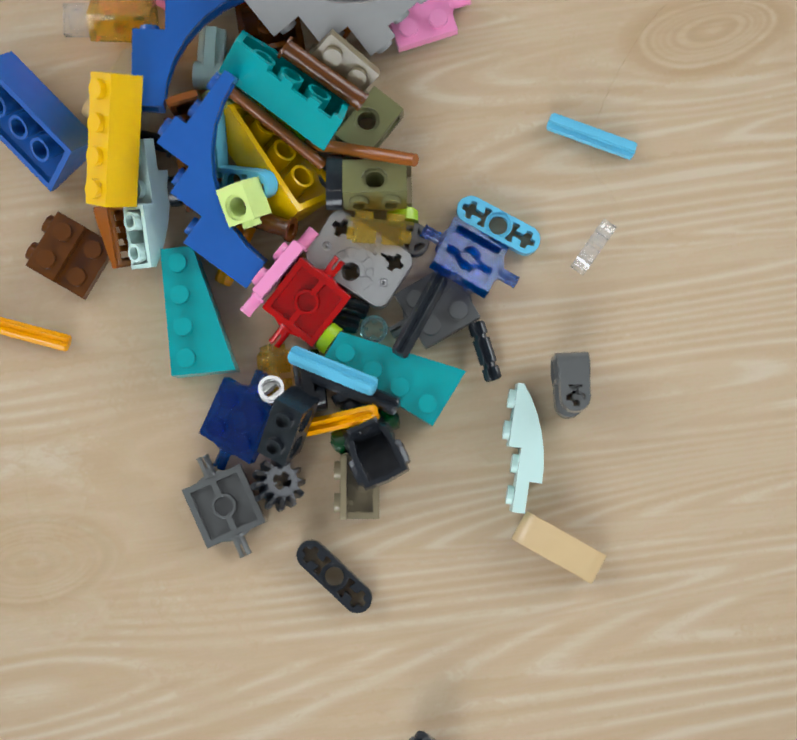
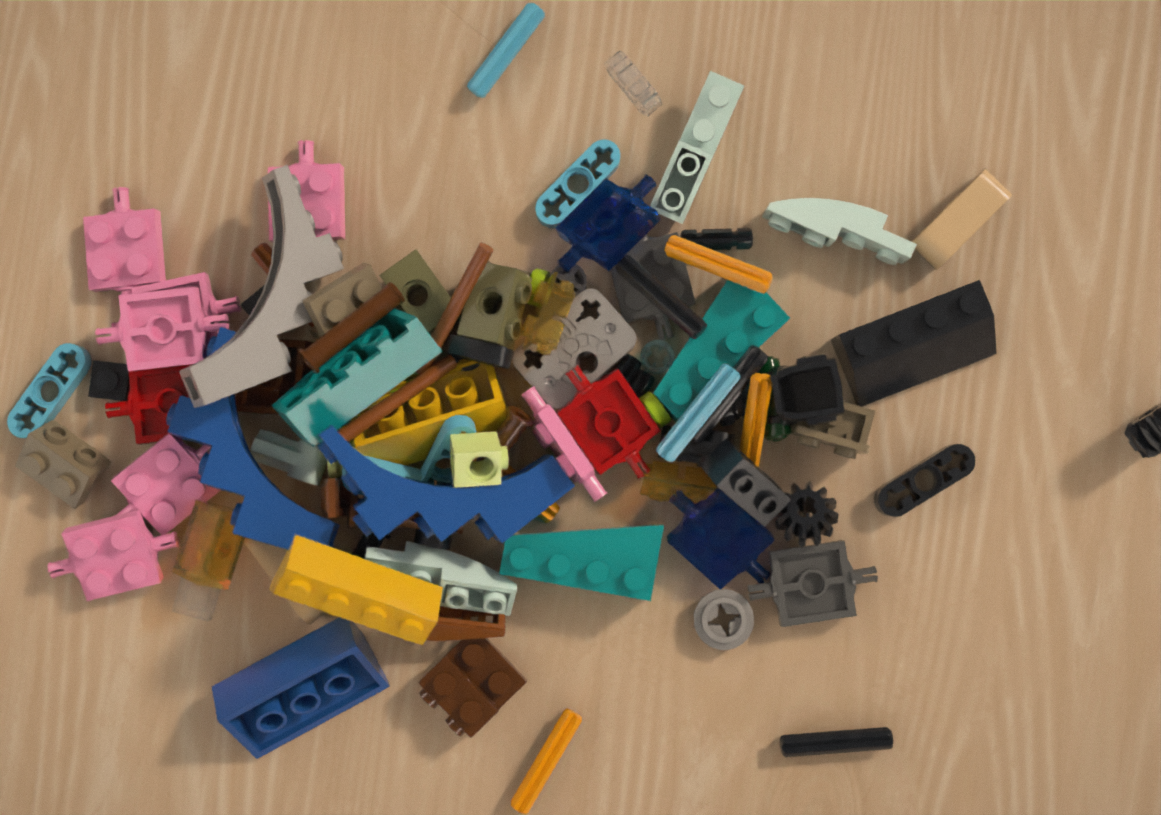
camera: 75 degrees left, 0 degrees up
(102, 561) = (836, 742): none -> black axle
(161, 438) = (739, 627): none -> light grey gear
(267, 385) = (692, 492): white hinge -> none
(444, 539) = (917, 343): none -> black slope
(459, 354) = (718, 264): none -> light orange axle
(553, 312) = (696, 147): none -> light aqua slope
(570, 375) = (774, 148): dark grey piece -> none

